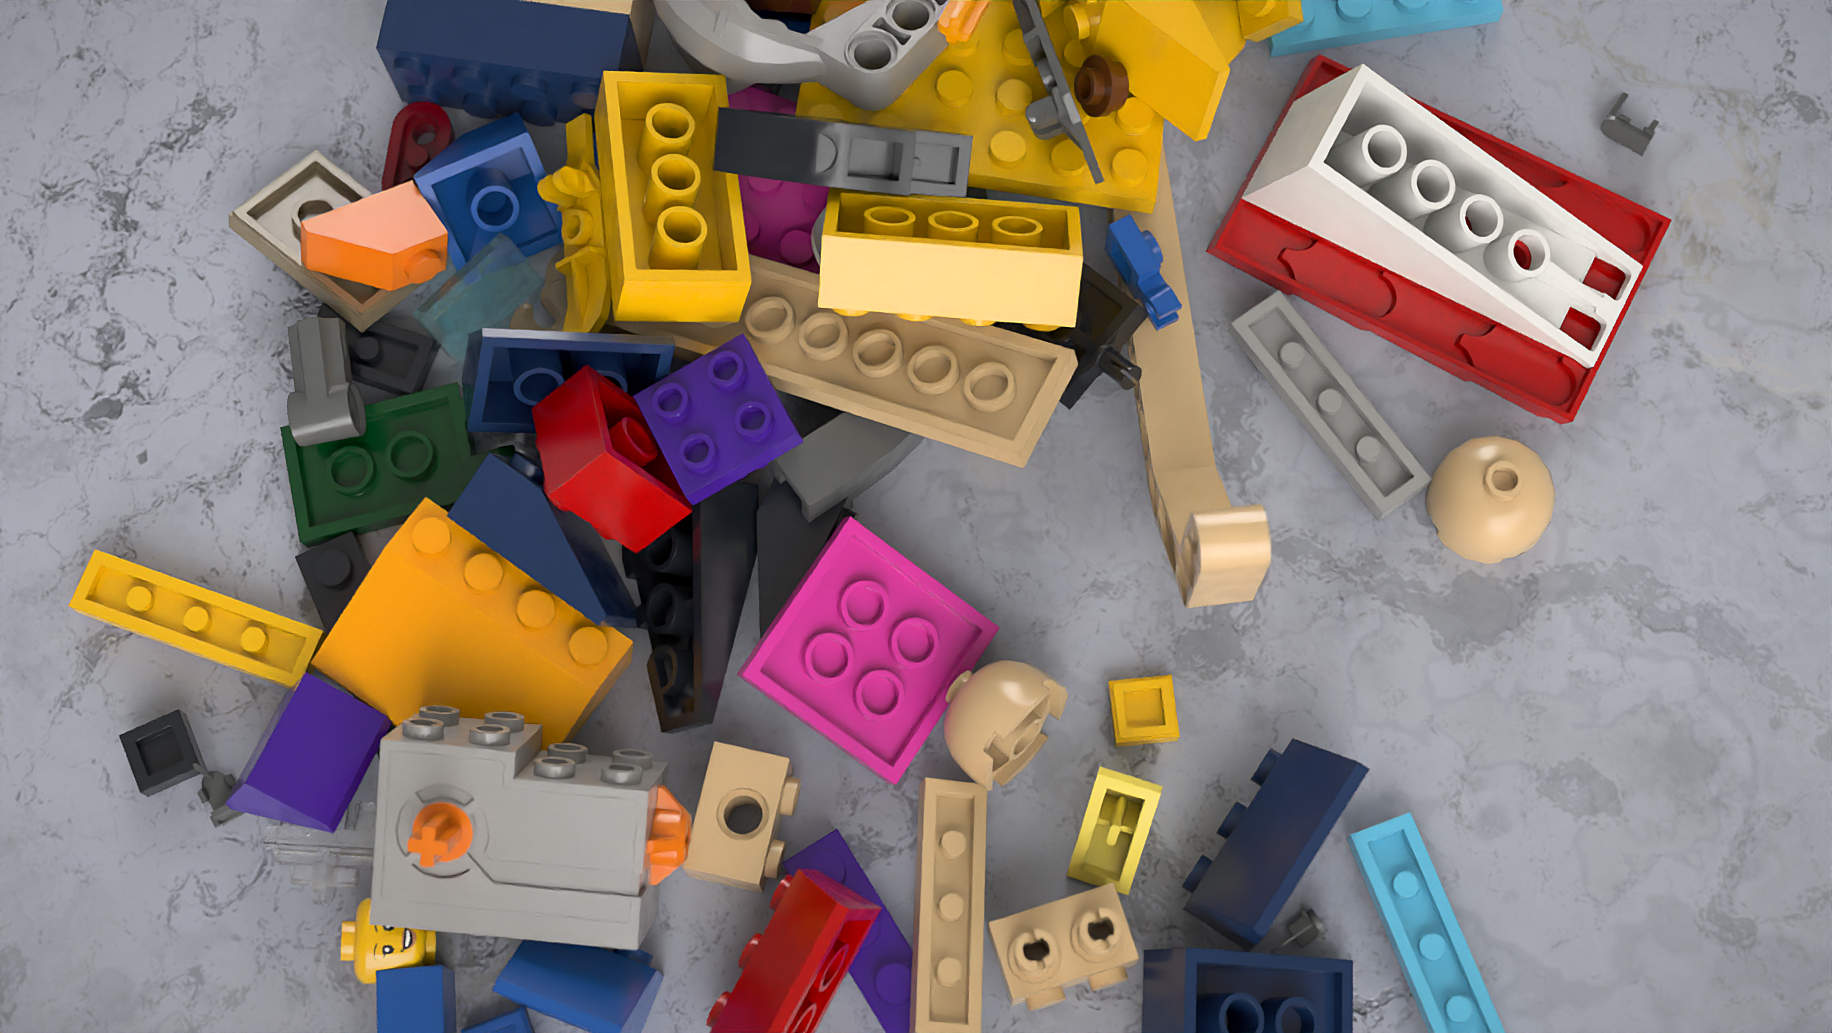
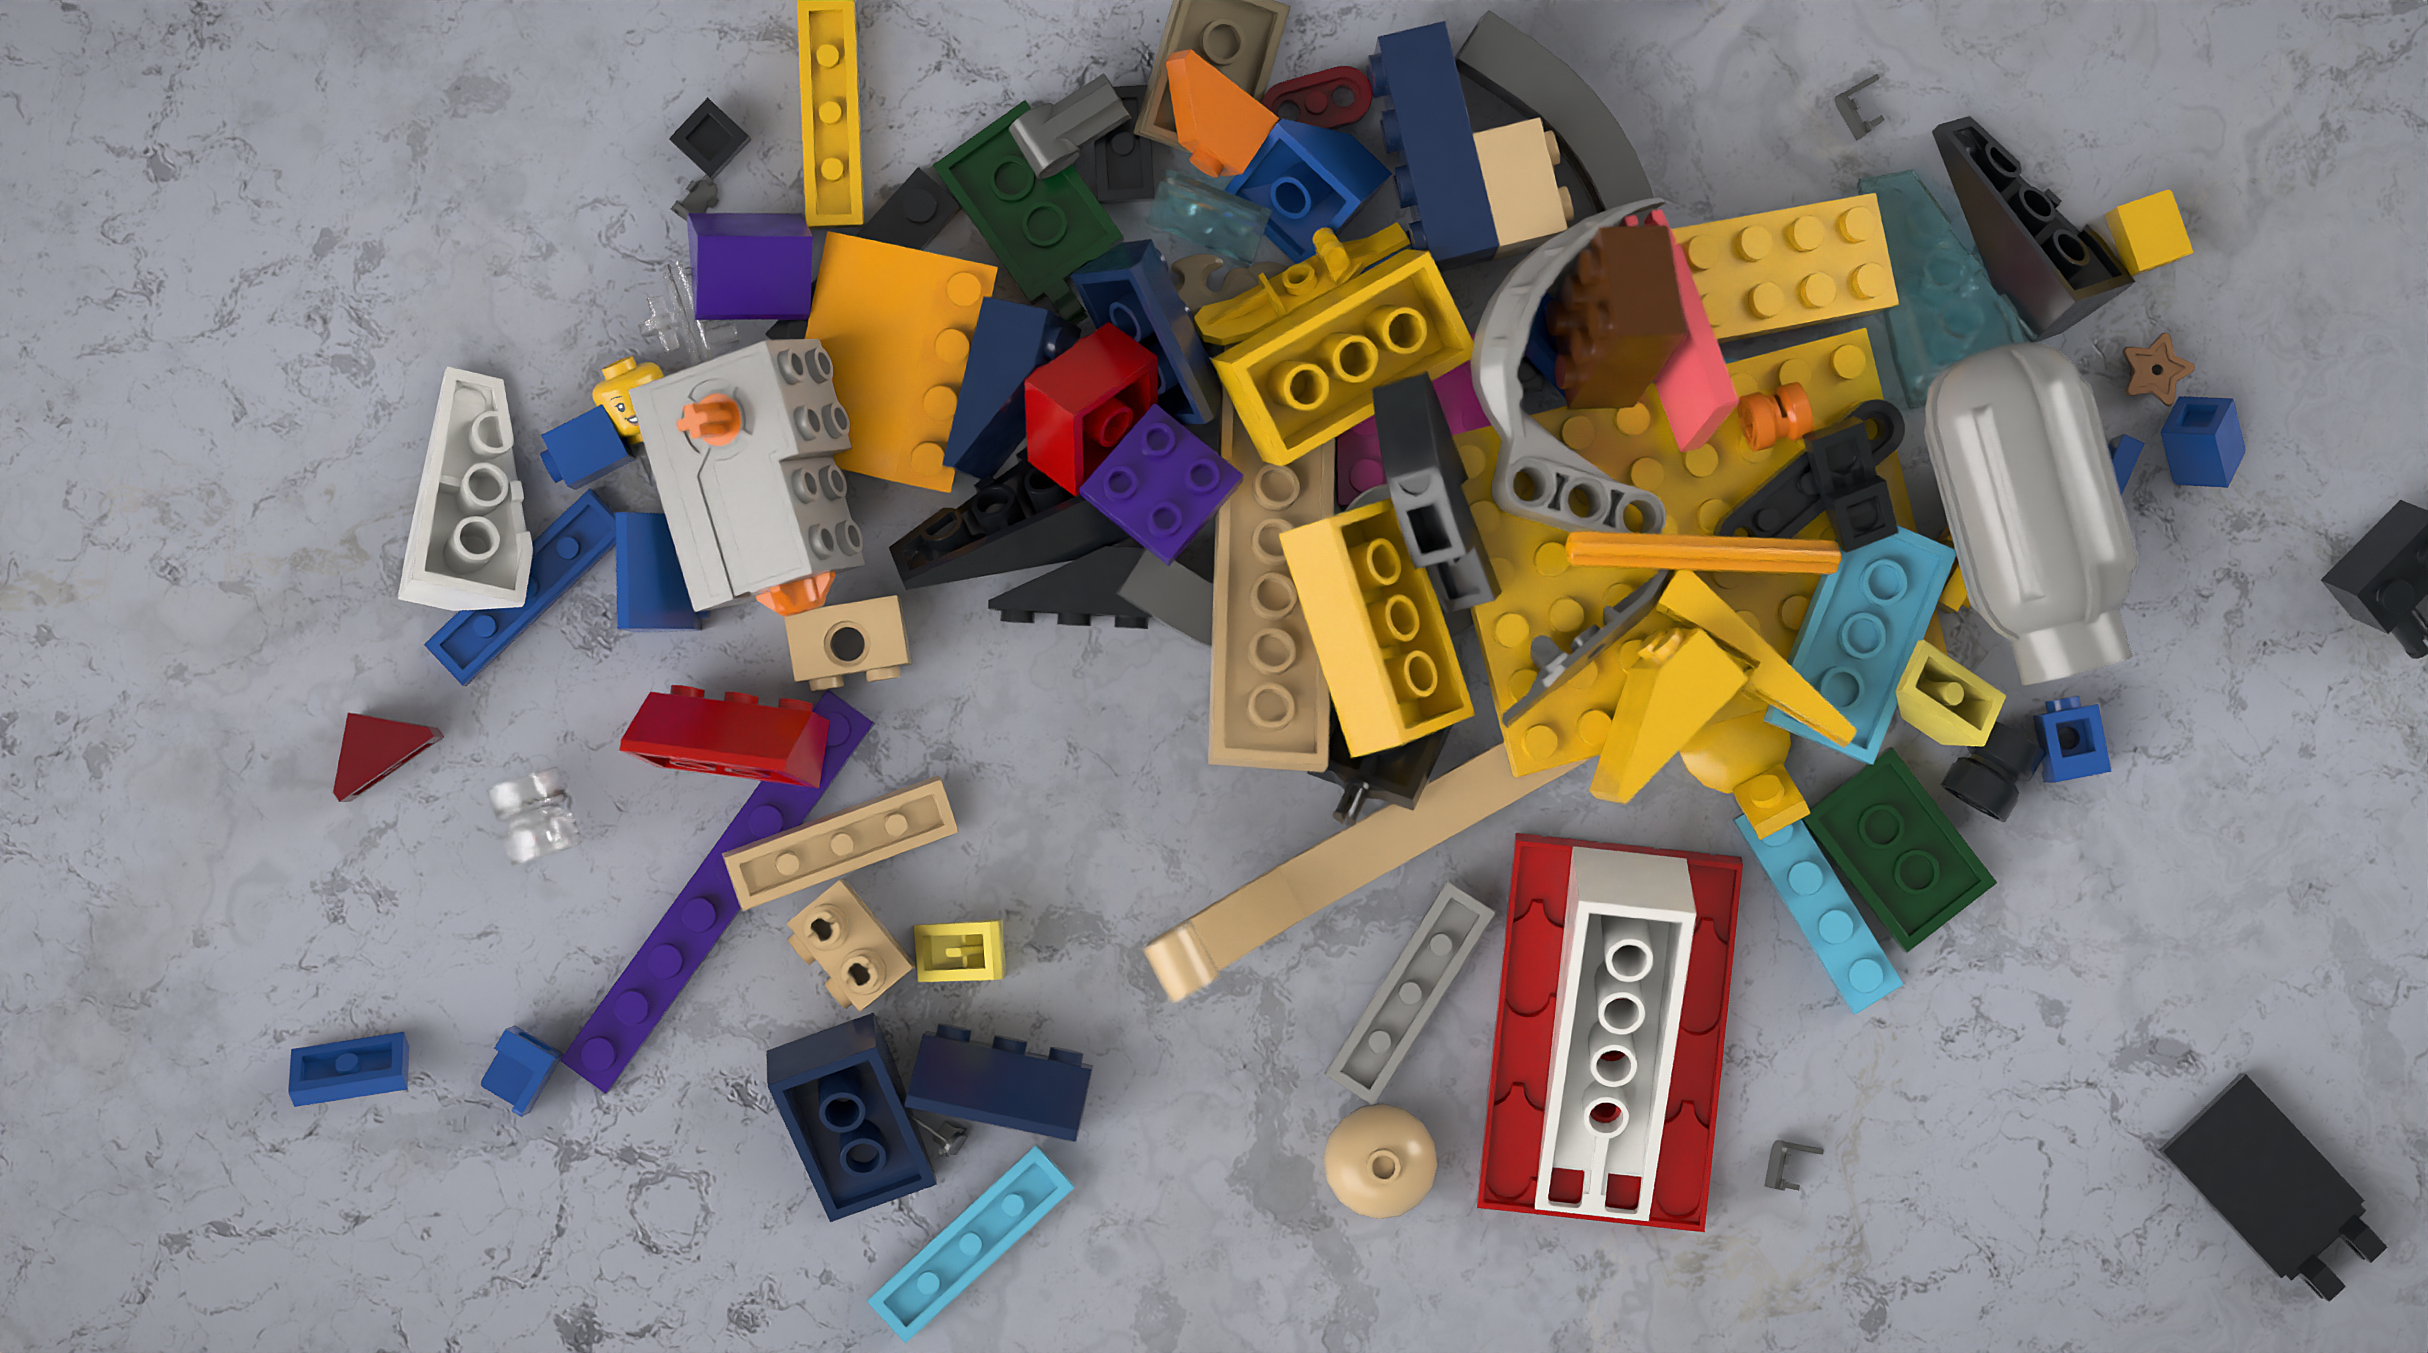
camera: 60 degrees right, 15 degrees up
(868, 650) = (1026, 689): dark pink plate -> none
(999, 719) = (1013, 819): tan cylinder -> none
(1101, 85) = (1598, 690): reddish brown plate -> none
(1139, 263) = (1459, 781): blue plate -> none
(1143, 710) = (1077, 935): yellow tile -> none

